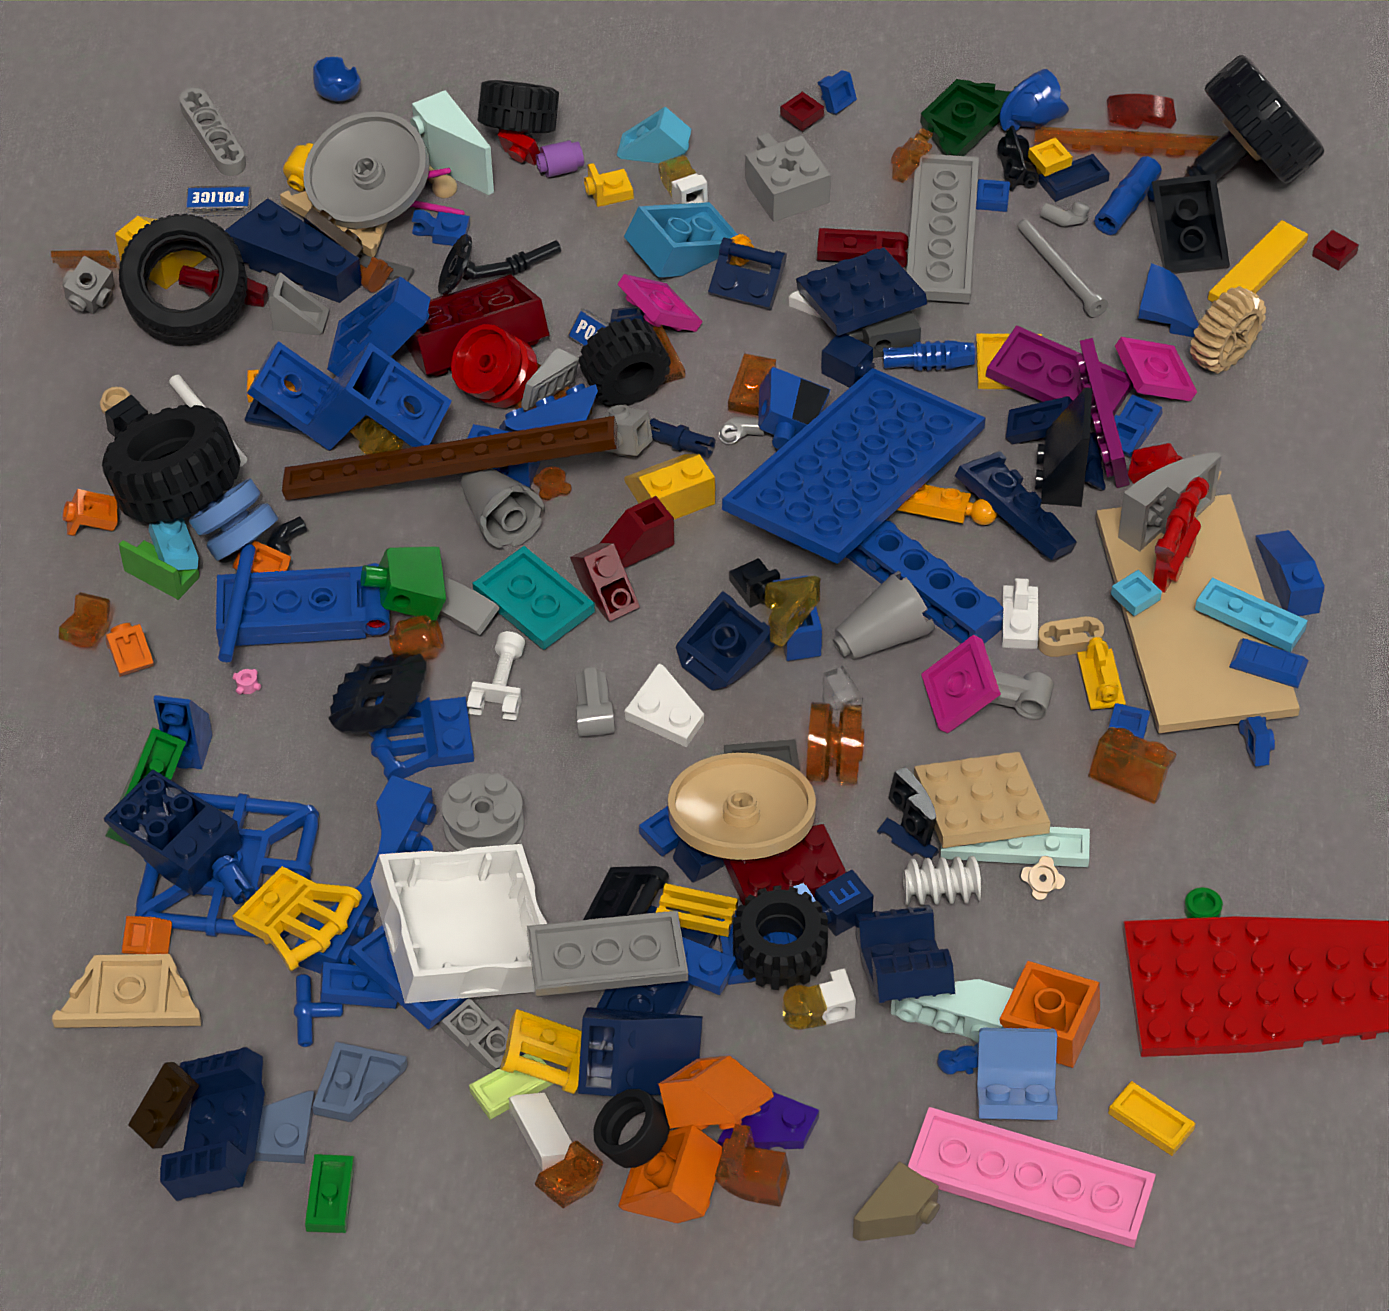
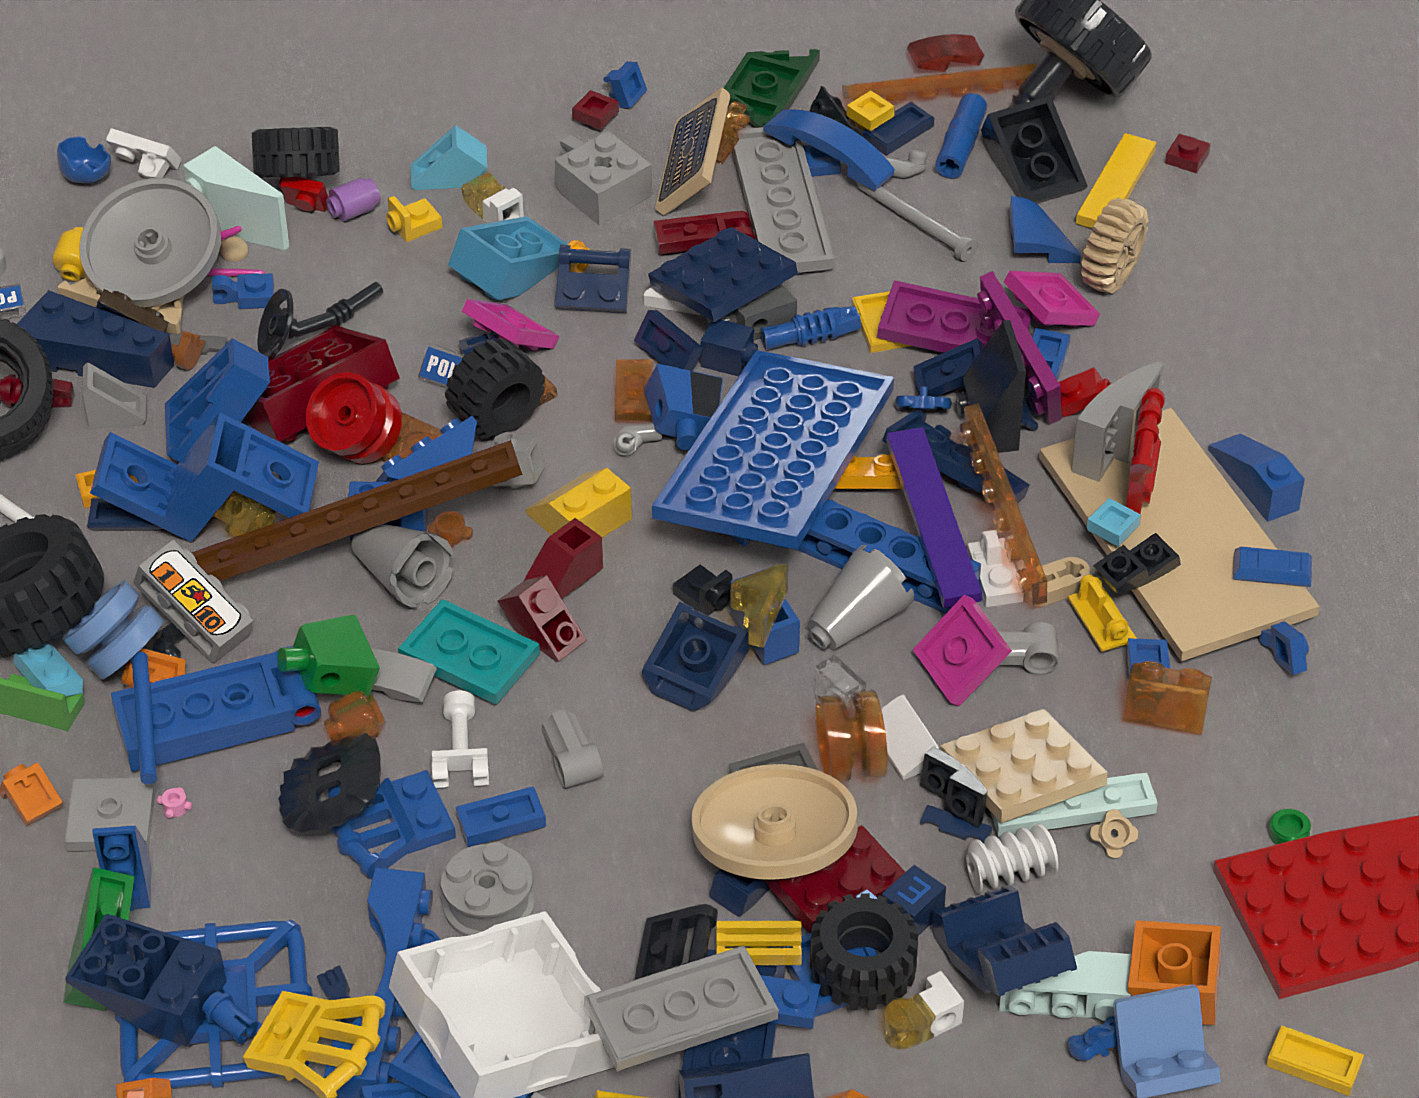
camera: 15 degrees left, 5 degrees down
(192, 676) = (107, 804): none -> light grey plate
(310, 506) = (193, 601): none -> brick
(332, 871) = (335, 987): none -> dark blue piece
(398, 88) = (153, 155): none -> white hinge
(515, 751) = (500, 816): none -> blue plate
(550, 378) = (419, 419): light grey slope -> none
(659, 832) = (690, 869): blue plate -> none
(665, 708) = (650, 739): white wing -> none
(682, 438) = (576, 457): dark blue pin -> none
(795, 347) = (667, 342): none -> dark blue plate
(874, 168) = (693, 151): none -> tile
(885, 751) = (905, 737): none -> white slope
(973, 556) = (933, 516): none -> dark purple tile
(1007, 181) = (835, 139): none -> blue slope
(1007, 445) = (923, 401): none -> blue piece
(1033, 102) = (837, 59): blue helmet -> none
(1040, 568) = (1007, 513): none -> clear orange plate
(1143, 639) = (1139, 566): none -> black slope
(1251, 615) = (1239, 521): medium azure plate -> none

